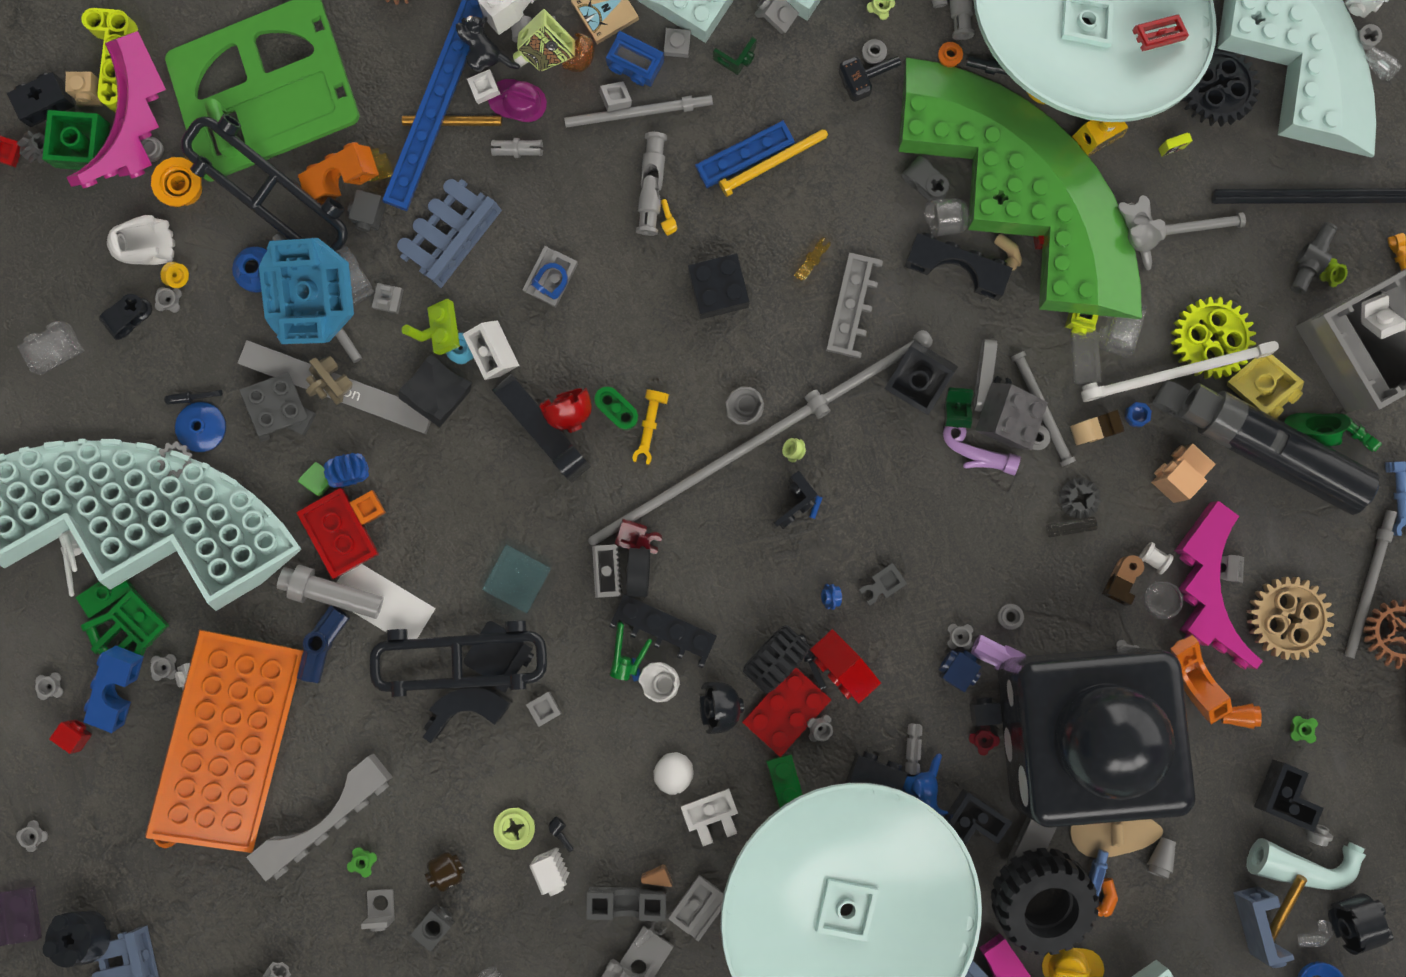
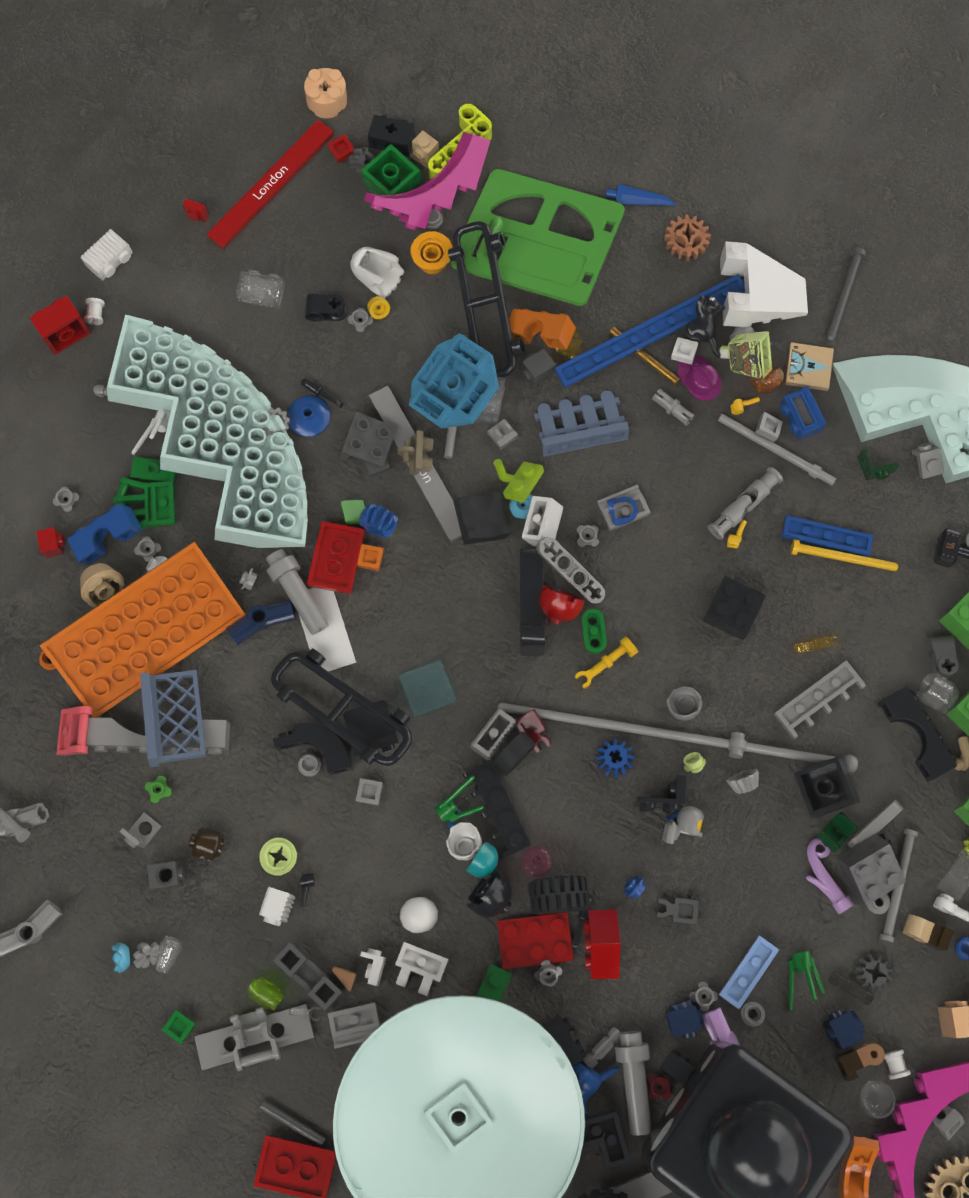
camera: 40 degrees right, 10 degrees down
(149, 735) = (100, 583): none -> tan cone
(243, 878) = (73, 731): none -> coral plate
(248, 281) = (421, 348): blue piece -> none
(277, 618) = (248, 579): none -> light grey plate
(307, 815) = (153, 723): none -> sand blue fence
(473, 730) = (309, 765): none -> light grey plate
(540, 320) = (583, 531): none -> light grey plate
(551, 375) = (572, 568): none -> light grey beam
(573, 101) = (738, 405): none -> yellow hand
(602, 948) = (265, 993): none -> clear neon green brick
(676, 851) = (374, 970): none -> white bracket
(677, 43) = (841, 426): light grey plate -> none
(691, 684) = (484, 861): none -> teal hair
(724, 644) = (530, 868): none -> clear pink head
(730, 496) = (606, 759): none -> blue gear
(831, 505) = (688, 822): none -> light grey piece
(848, 429) = (744, 781): none -> light grey piece
(943, 735) = (632, 1054): none -> light grey piece
(980, 585) = (748, 972): none -> light blue plate
(1018, 540) = (804, 964): none -> green plant
(1092, 565) = (844, 1028): none -> dark blue brick

